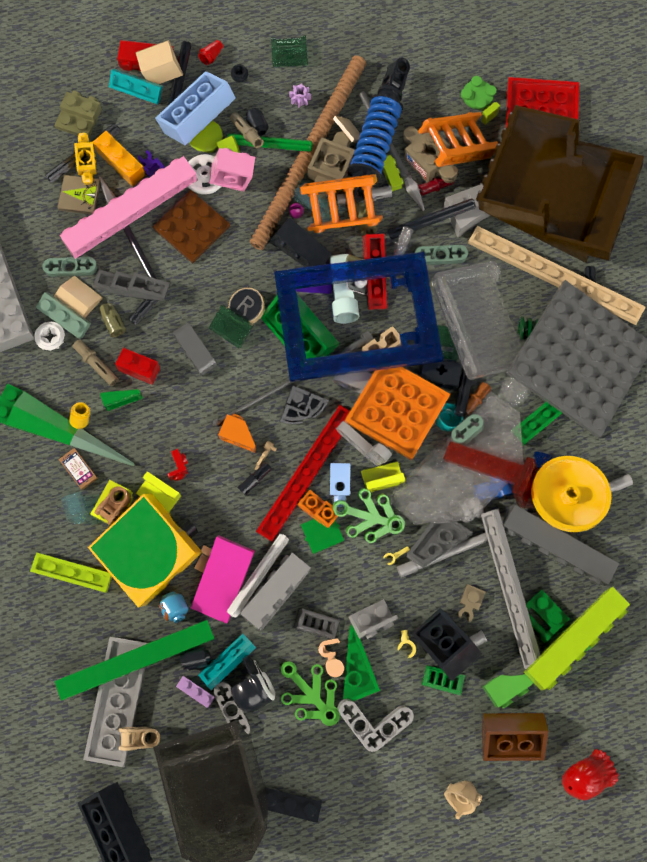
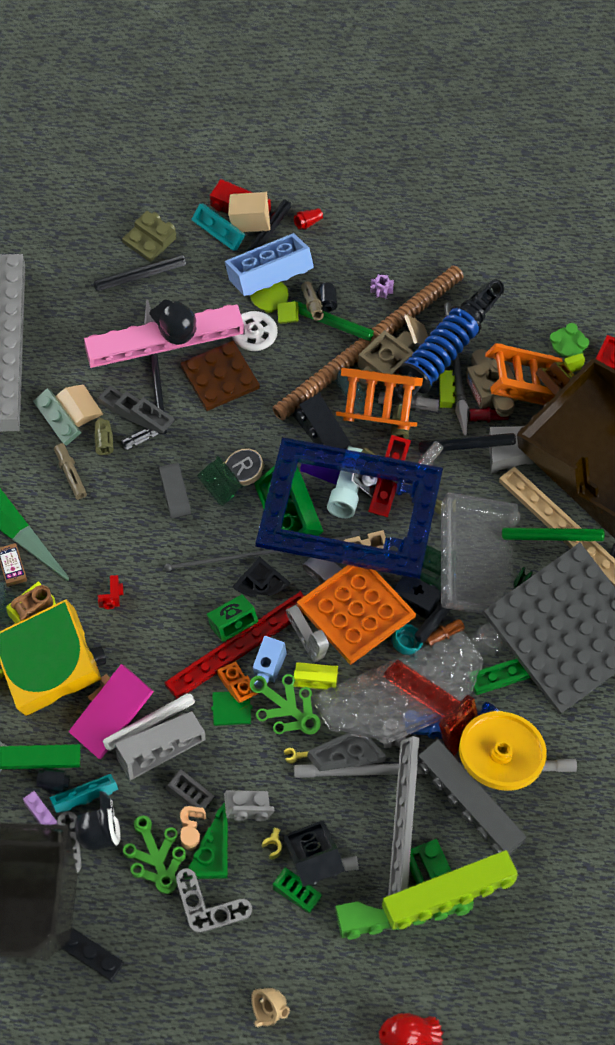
camera: 20 degrees right, 15 degrees down
(44, 330) = (30, 426): white gear -> none
(64, 261) = (78, 367): sand green beam -> none
(77, 196) = (119, 310): dark tan tile -> none
(79, 415) = (34, 513): yellow brick -> none
(84, 146) = (139, 266): yellow piece -> none
(117, 399) = (81, 512): green slope -> none
(119, 158) = (171, 283): light orange brick -> none
(135, 192) = (174, 321): none -> black piece
(137, 366) = (110, 487): red brick -> none
(150, 165) = (201, 303): dark purple plate -> none
(163, 493) = (87, 613): neon yellow panel -> none
(173, 607) = (51, 723): dark azure head -> none
(232, 169) = (281, 332): bright pink brick -> none
(237, 433) = (183, 582): orange slope -> none
(239, 68) = (329, 242): black plate -> none
(253, 479) = (184, 632): black axle -> none
(268, 446) = (199, 616): tan piece -> none
(289, 55) = (387, 245): clear green plate -> none
(292, 451) = (232, 618): none -> green brick
(296, 213) = (333, 394): magenta hinge -> none
(446, 248) = (481, 482): sand green beam -> none
(467, 429) = (421, 655): sand green beam -> none
(472, 599) = (359, 824): dark tan plate -> none
(486, 133) = (555, 376): none -> reddish brown slope
(514, 736) = (347, 970): reddish brown slope -> none
(536, 278) = (553, 534): none -> green axle

